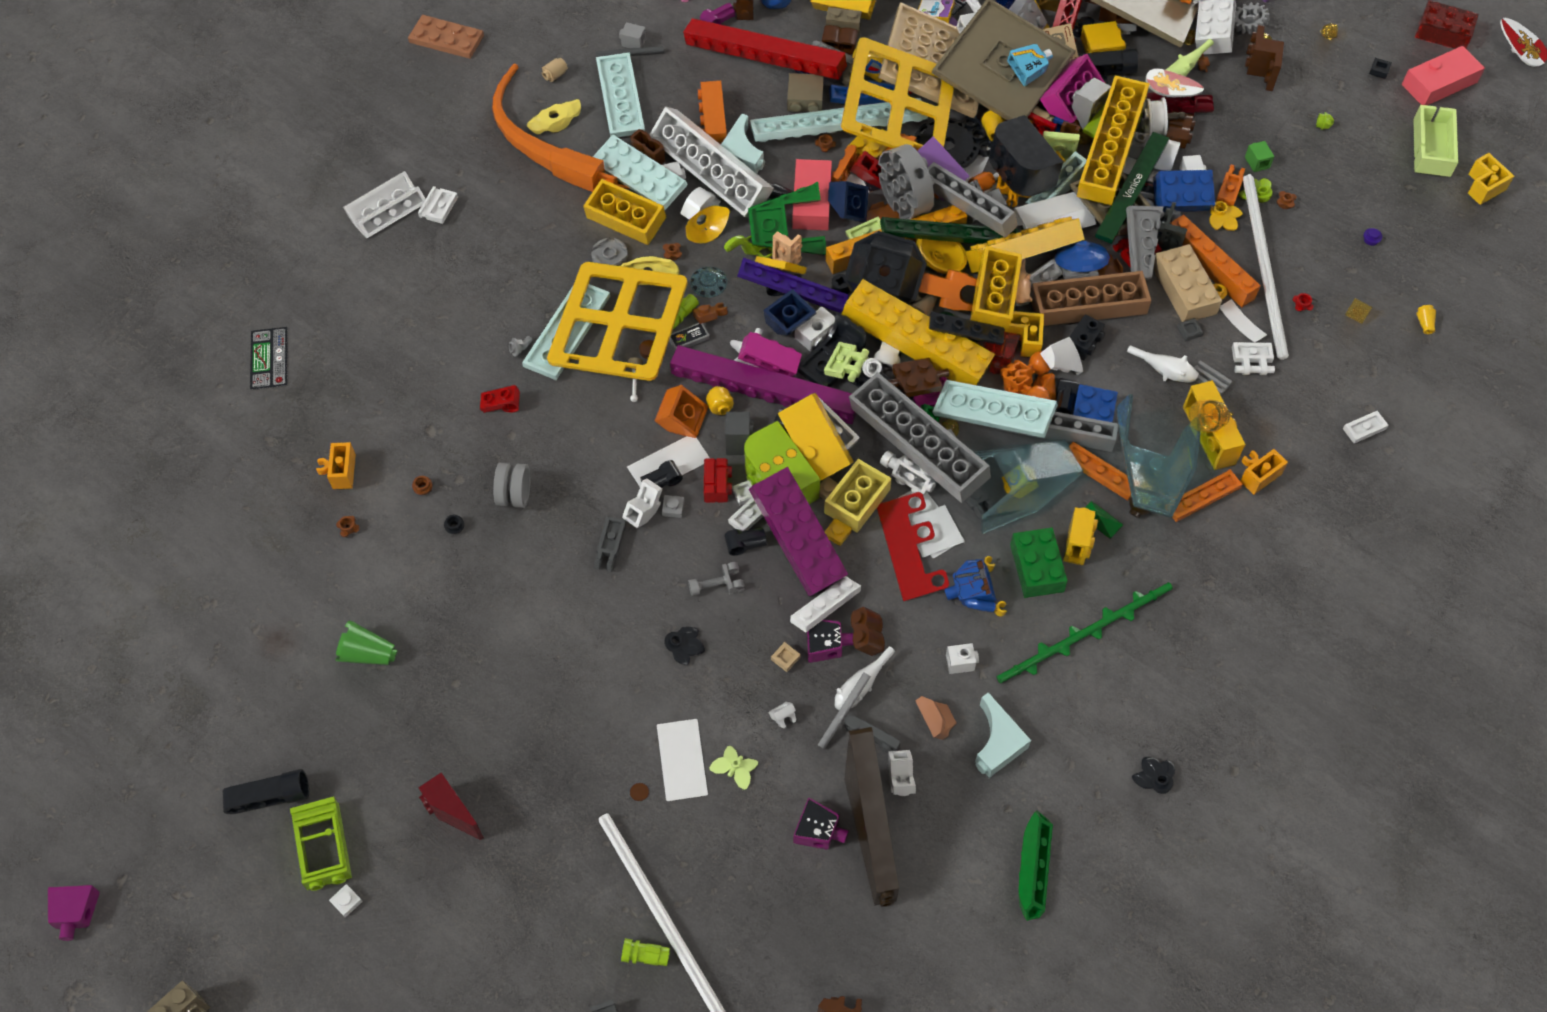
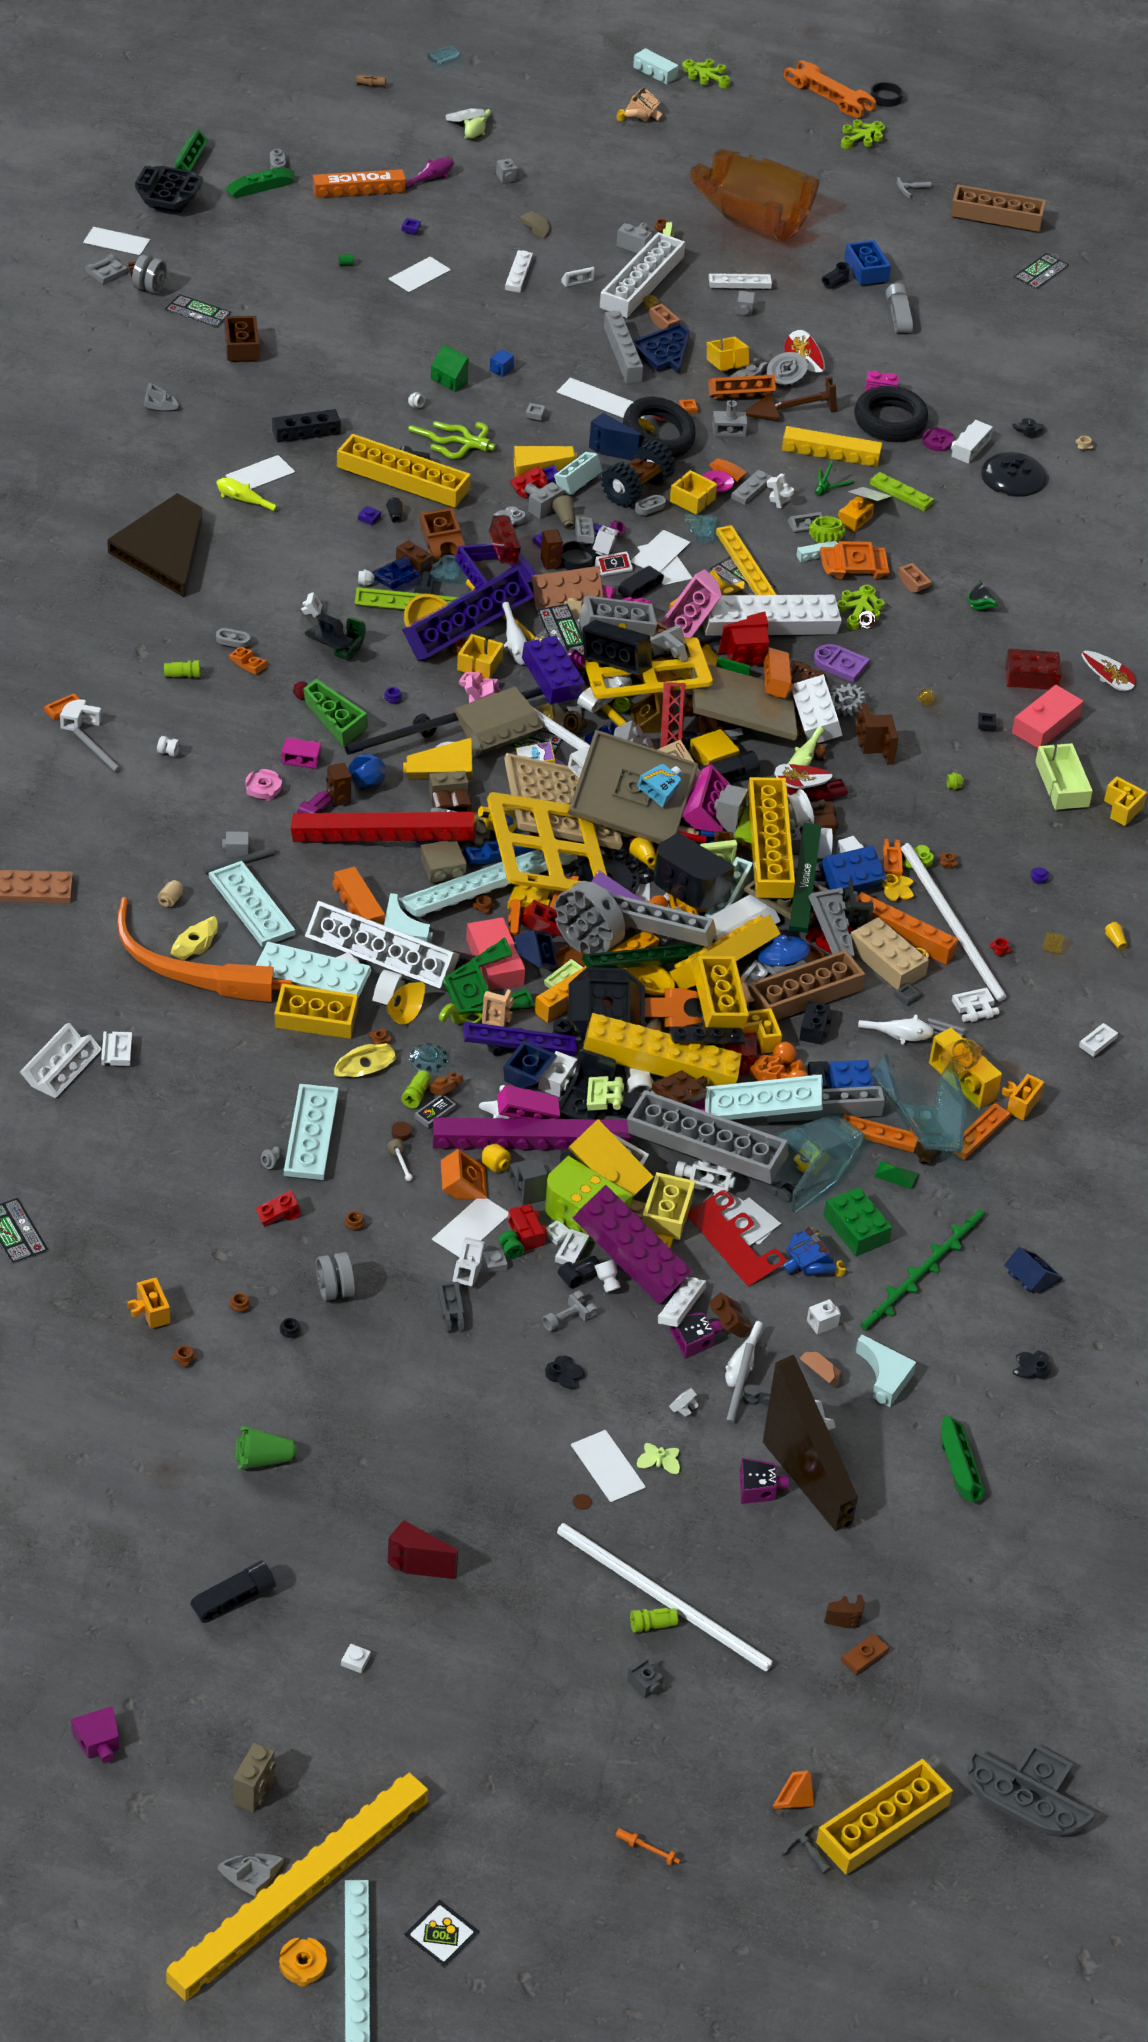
camera: 25 degrees left, 15 degrees down
(312, 814) = (292, 1593): lime door -> none
(563, 425) = (354, 1220): none -> dark orange plate
(609, 252) = (317, 1055): light grey tile -> none
(618, 320) = (362, 1109): yellow window -> none
(650, 147) = (306, 941): reddish brown brick -> none
(667, 474) = (475, 1230): black piece -> none
(693, 493) = (510, 1242): none -> green wheel
(768, 551) = (607, 1272): none -> white piece
(781, 265) = (505, 1021): yellow tile -> none
(785, 657) = (664, 1357): tan plate -> none
(871, 367) = (632, 1091): white plate -> none
(1063, 356) = (804, 1042): white slope -> none
(1080, 536) = (886, 1188): yellow brick -> none
(1196, 667) = (1031, 1270): none -> dark blue slope
(1241, 322) = (951, 977): white sticker -> none
(1259, 156) = (907, 826): bright green brick -> none

